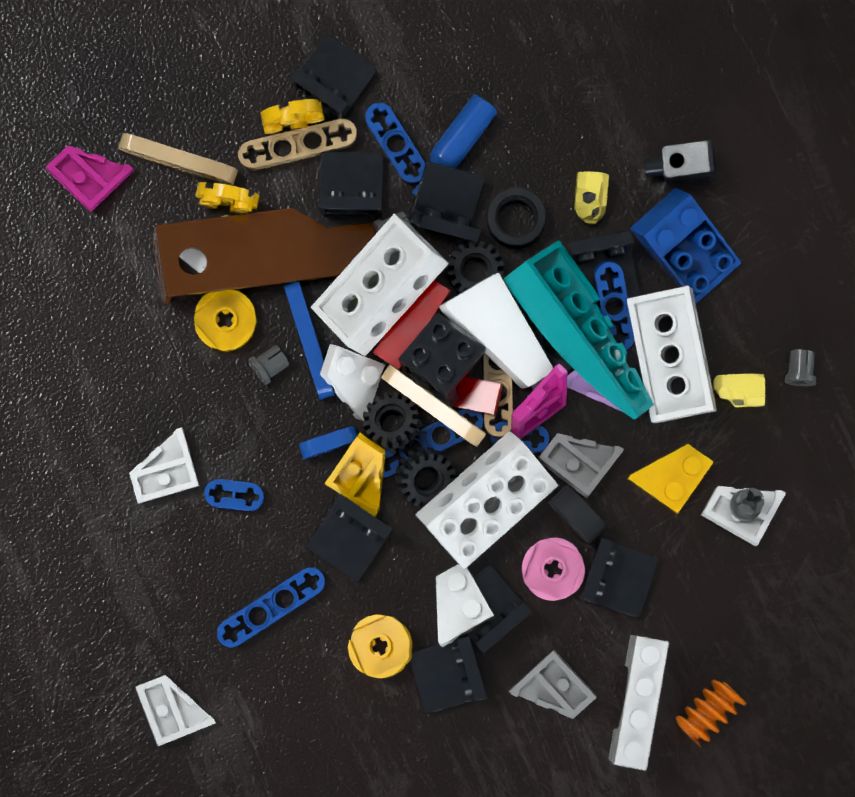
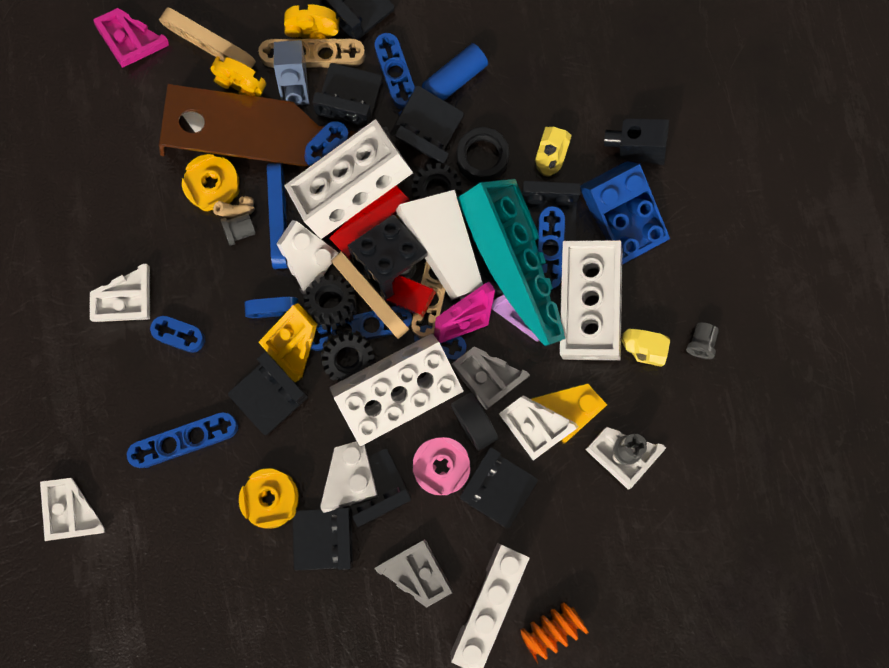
camera: 15 degrees right, 5 degrees down
(259, 346) = (231, 211): none -> tan arm
(284, 176) = (291, 71): none -> sand blue slope
(336, 245) = (321, 140): none -> blue beam
(643, 502) = (536, 425): none -> white wing

